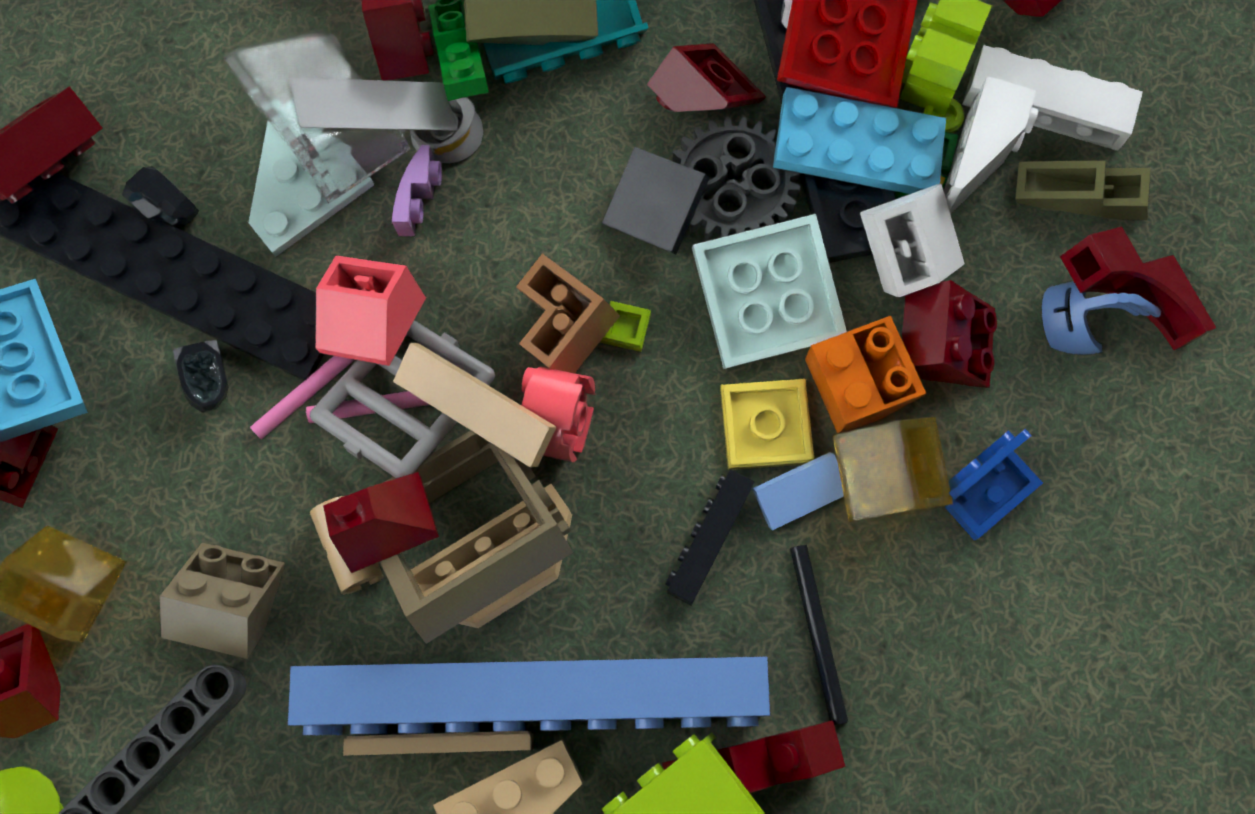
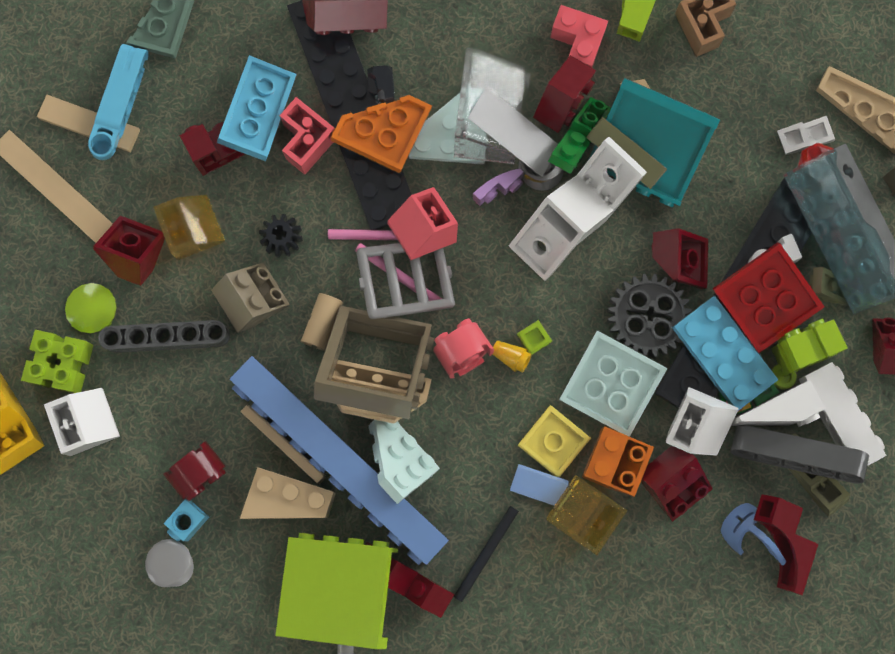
camera: 45 degrees right, 5 degrees up
(121, 332) = (311, 135): none -> coral brick
(177, 482) = (291, 231): none -> black gear
(202, 374) = (328, 187): rock -> none
(209, 246) = (384, 131): none -> orange plate
(380, 521) = (343, 329): dark red slope -> none
(474, 404) = (429, 313): tan tile -> none
(534, 129) = (577, 208): none -> white bracket
(572, 316) = (511, 313): medium nougat brick -> none
(610, 617) = (400, 460): none -> light aqua plate
(621, 369) = (512, 356): none -> yellow cone
(655, 200) = (602, 292): black tile -> none
(709, 536) = (479, 466): black piece -> none
(993, 489) = (623, 566): blue bracket -> none
(1054, 173) = (800, 454): none -> dark grey beam

